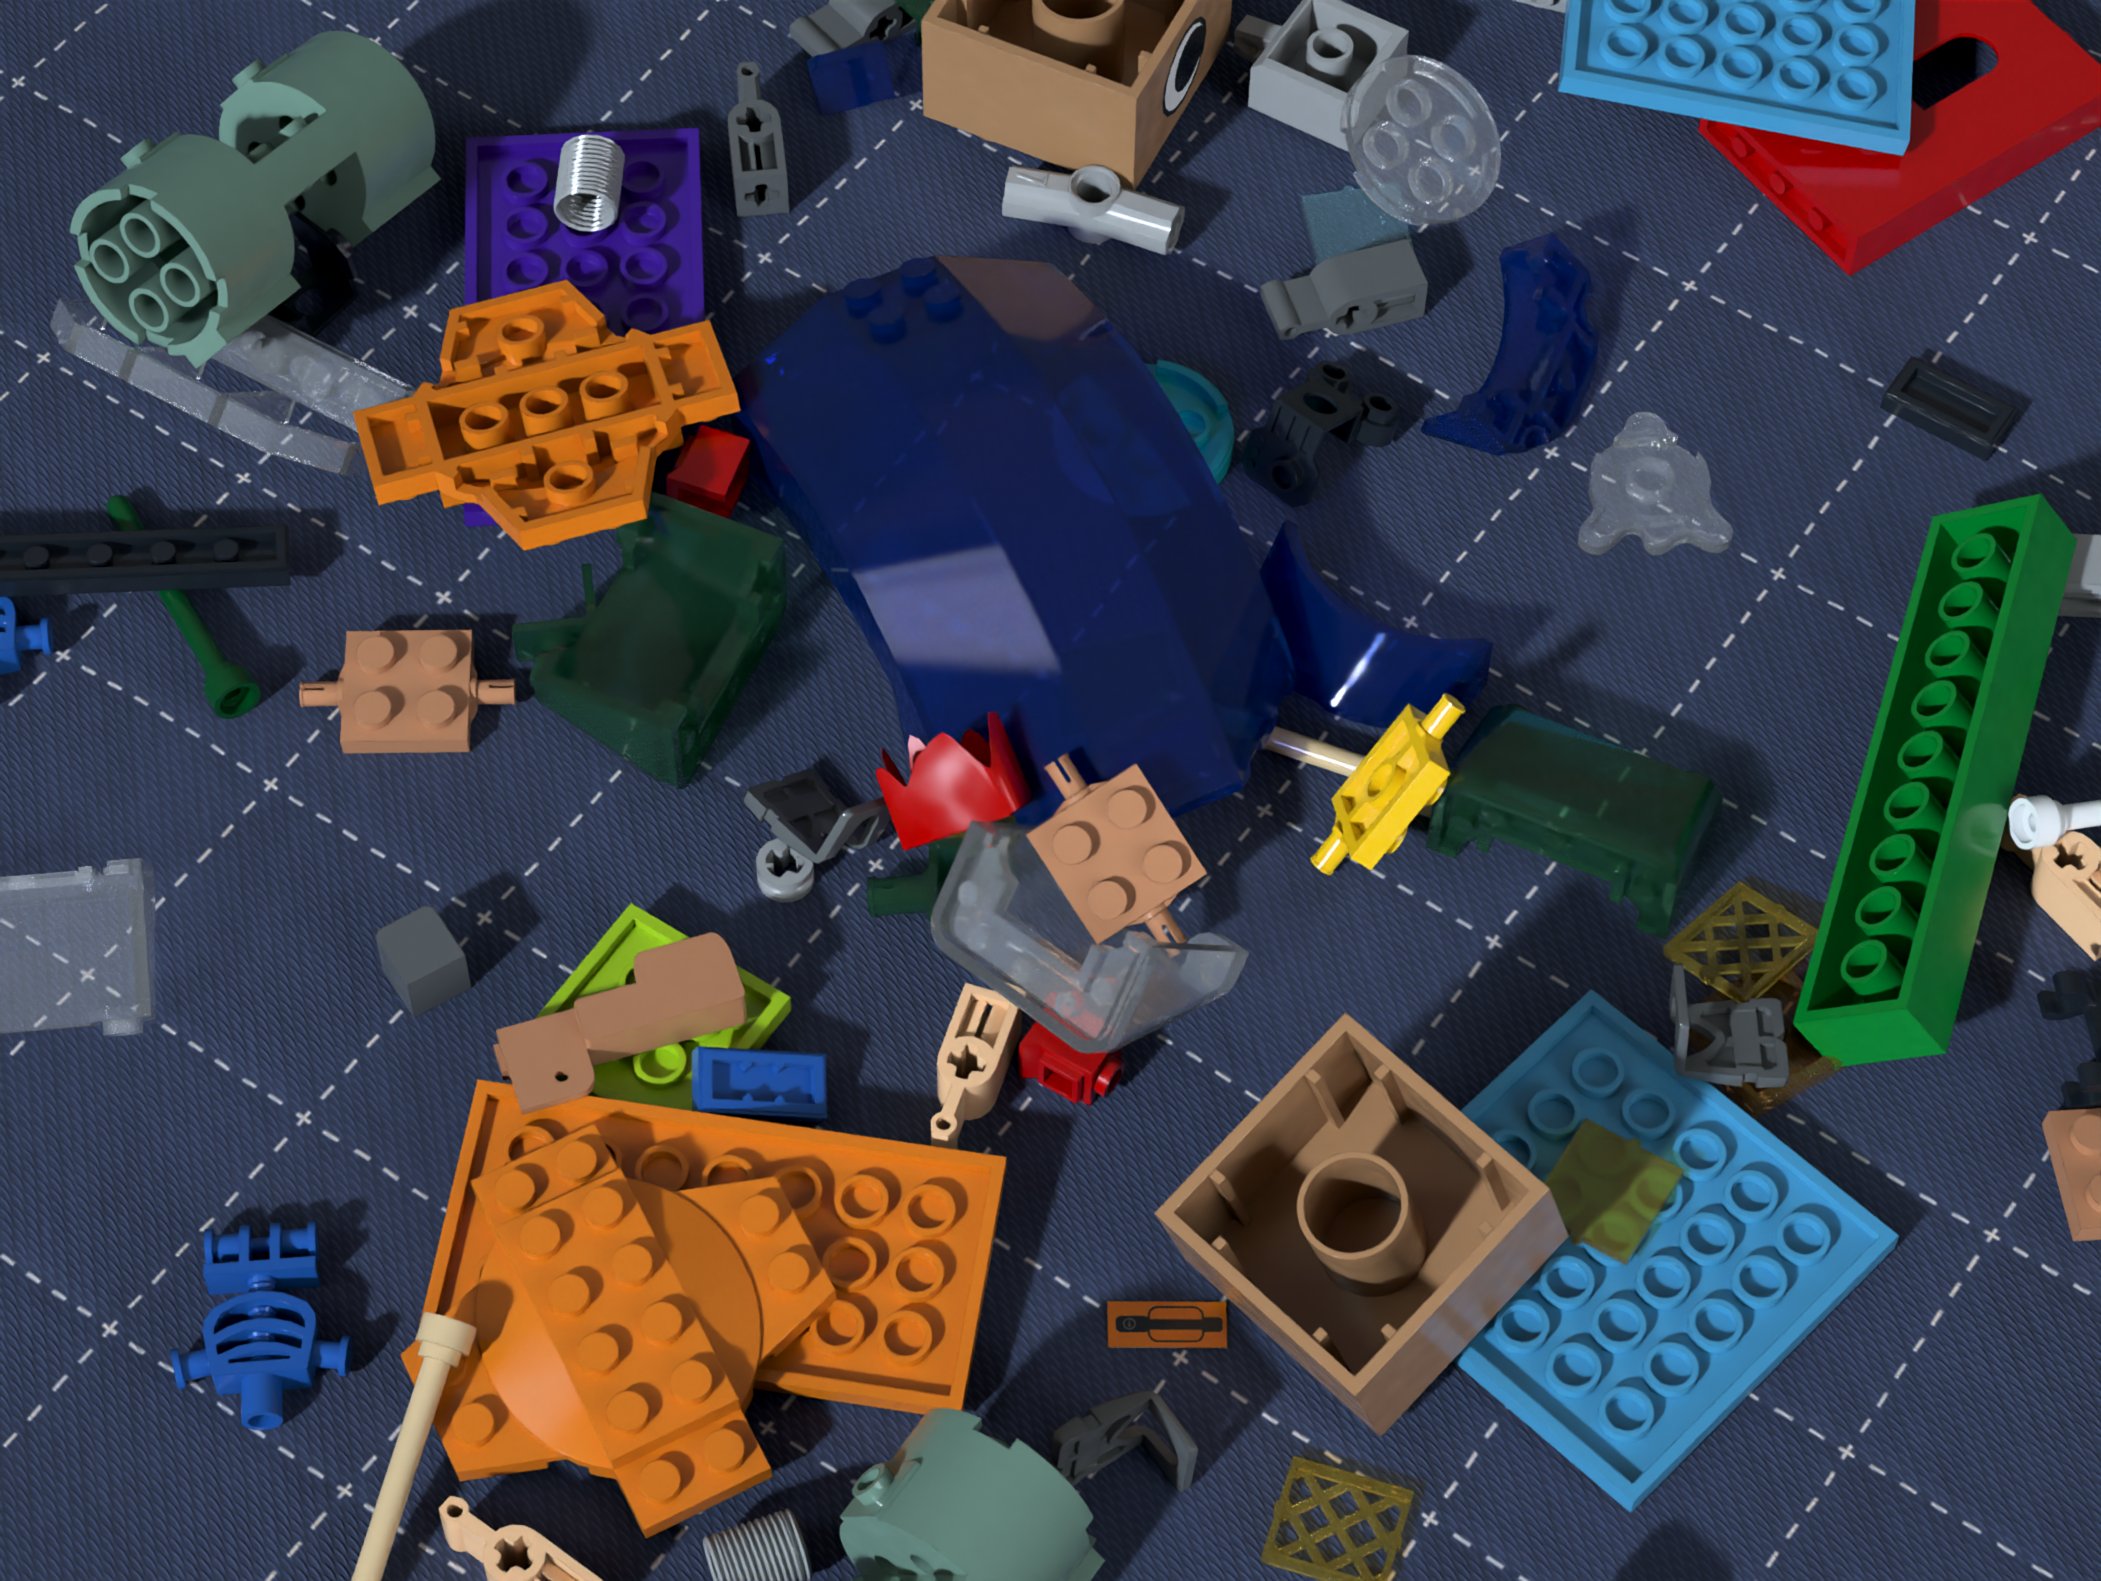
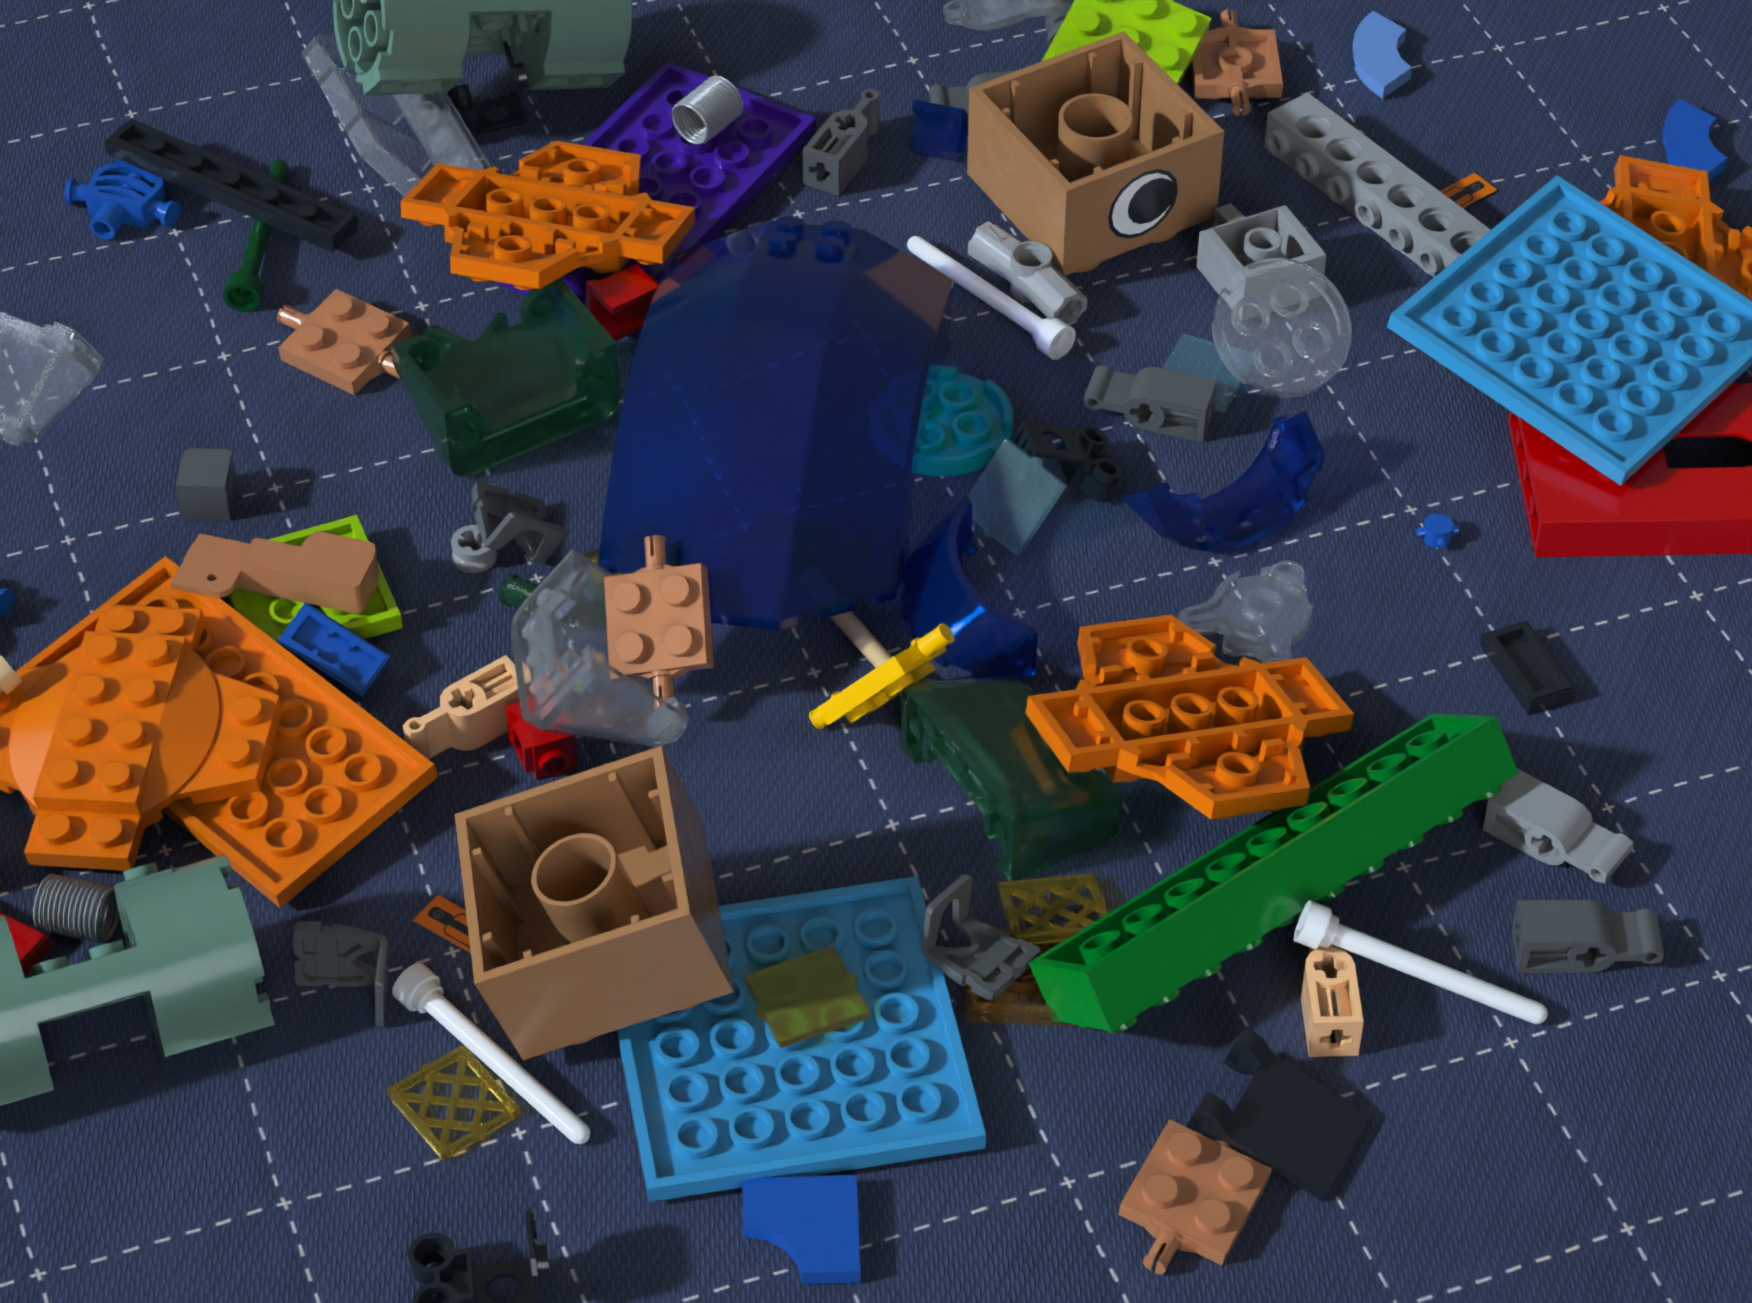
camera: 35 degrees right, 10 degrees down
(953, 784) = (585, 527): red piece -> none
(1174, 271) = (1051, 335): none -> white piece
(1210, 1426) = (421, 991): none -> white piece
(1320, 489) = (1014, 497): none -> clear light blue piece
(1719, 654) = (1182, 717): none -> orange plate
(1741, 297) = (1437, 530): none -> blue piece
(1802, 1432) = (810, 1220): none -> blue tile

